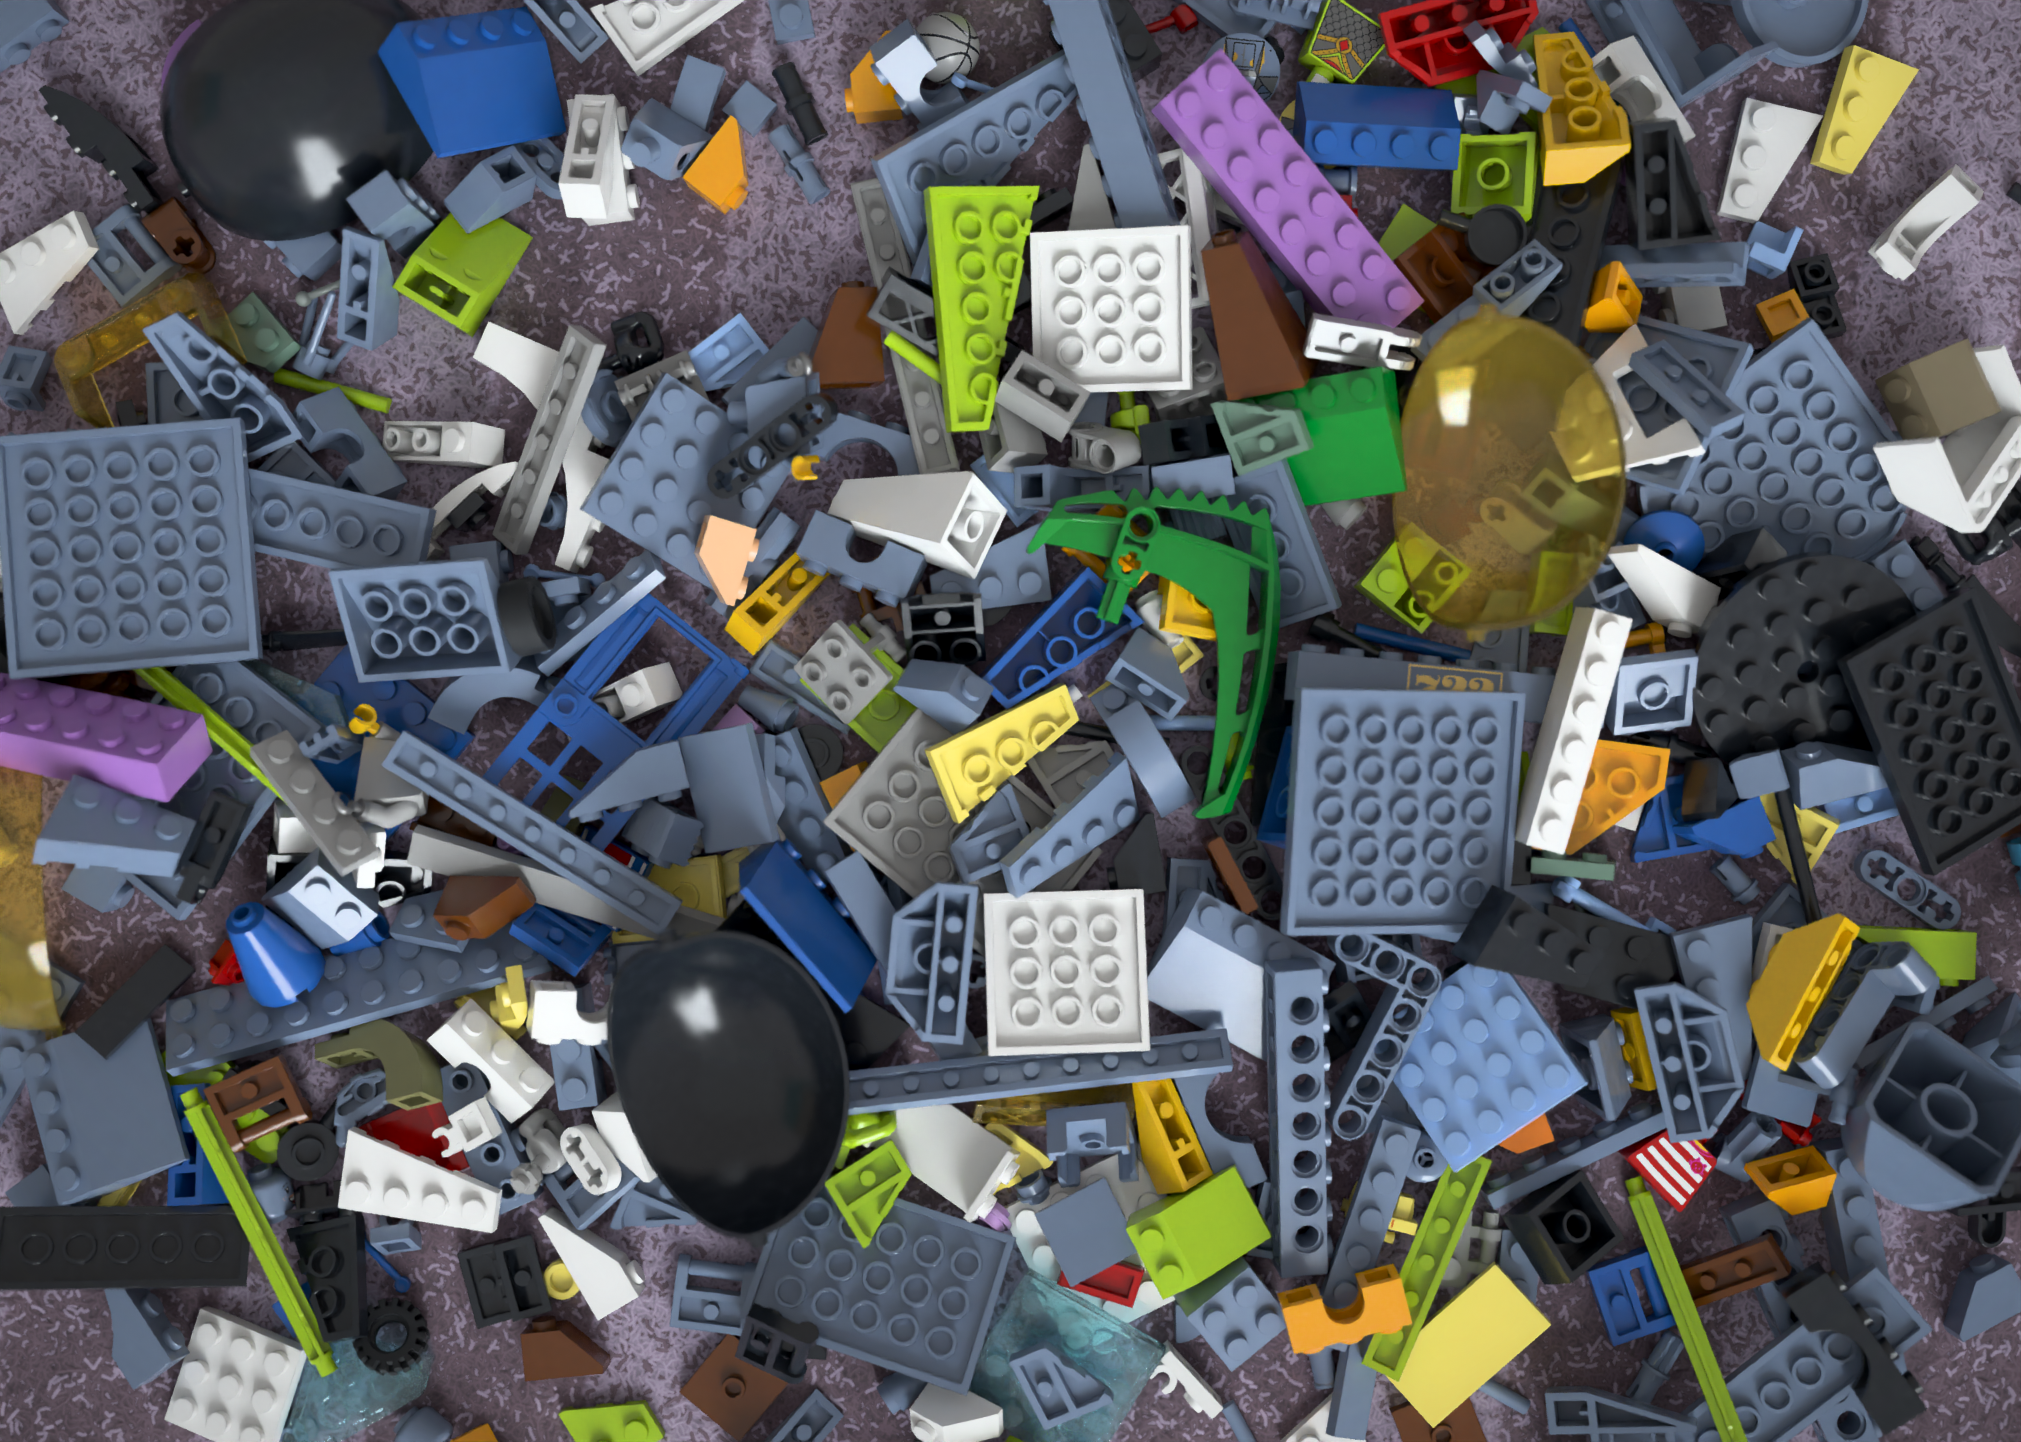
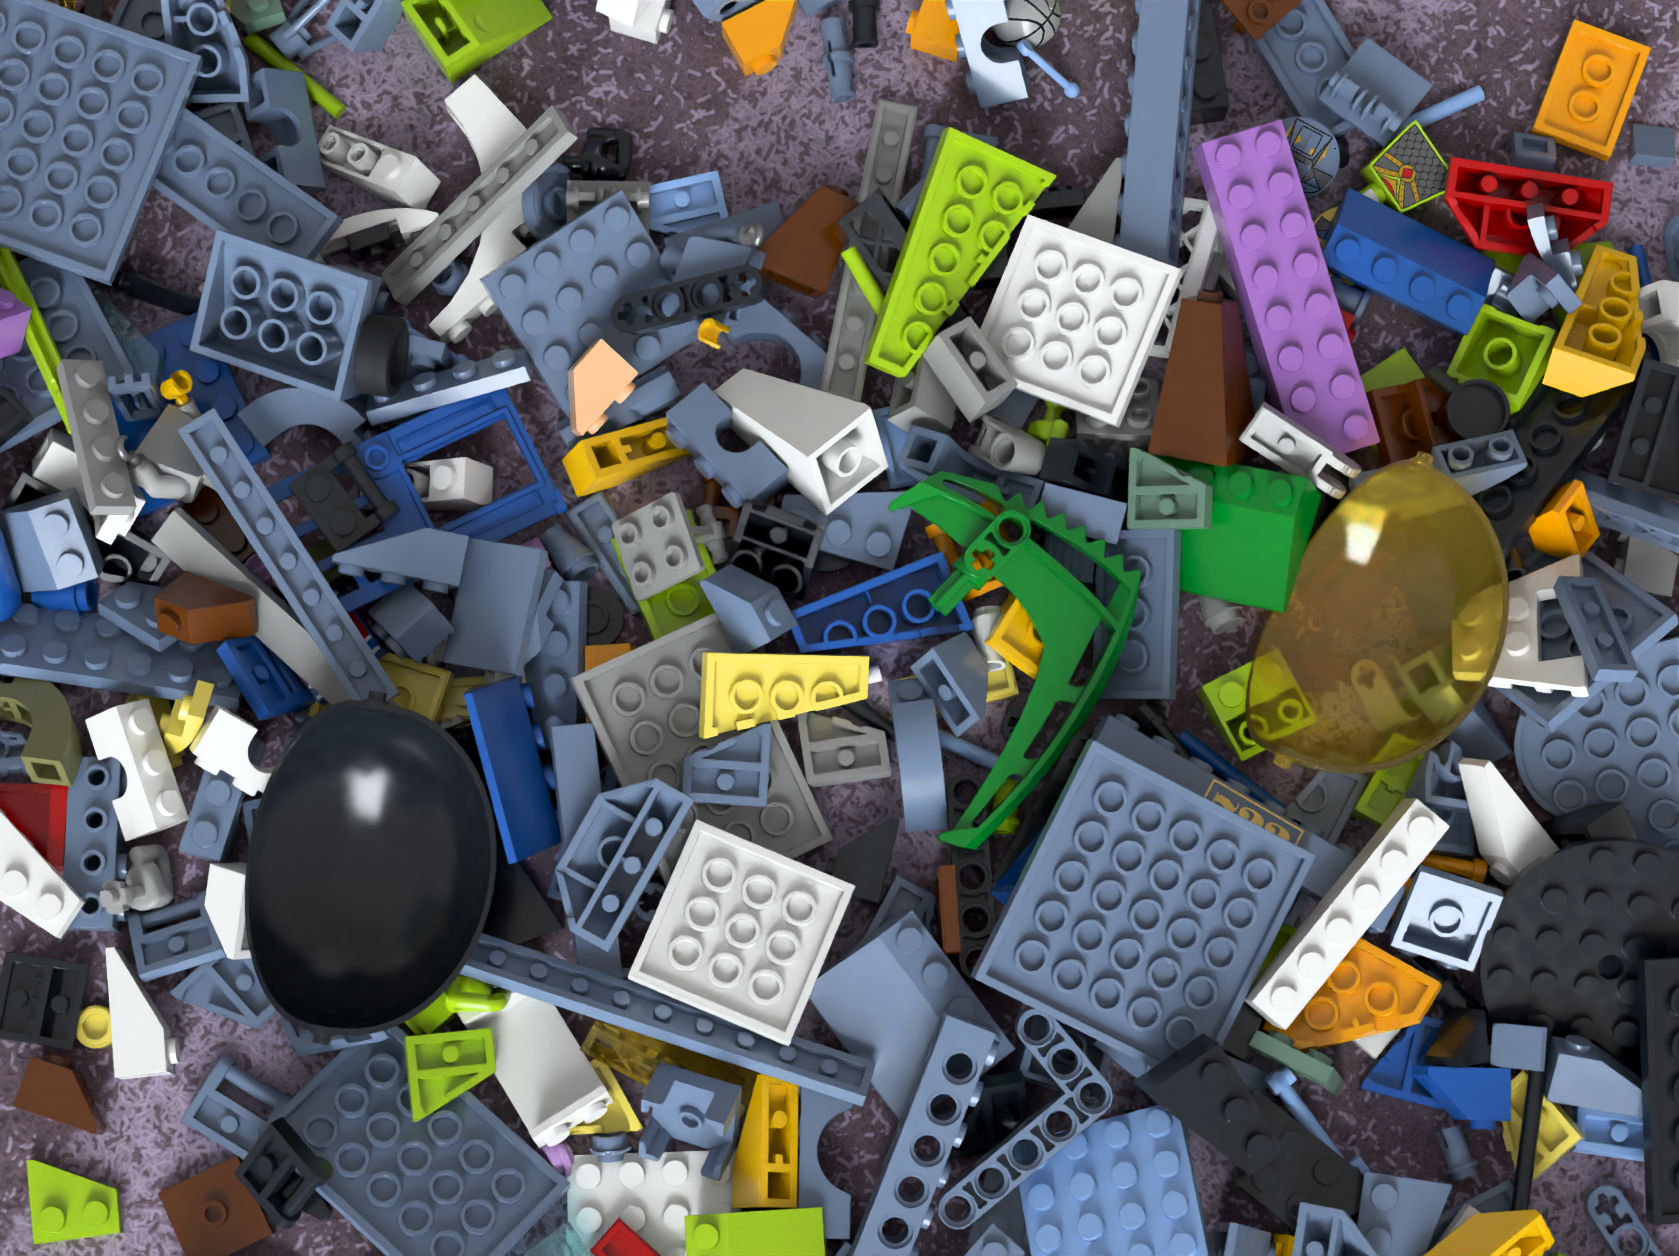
camera: 25 degrees right, 10 degrees down
(469, 1127) = (87, 824): white plate -> none
(548, 766) = (331, 505): none -> black plate
(590, 1159) = (191, 909): white beam -> none
(970, 144) = (1009, 109): sand blue wing -> none
(1075, 829) = (815, 799): sand blue wing -> none
(1086, 1232) = (643, 1208): sand blue tile -> none
(1181, 16) = (1264, 82): red hand -> none
(1669, 531) = (1536, 774): blue dish -> none

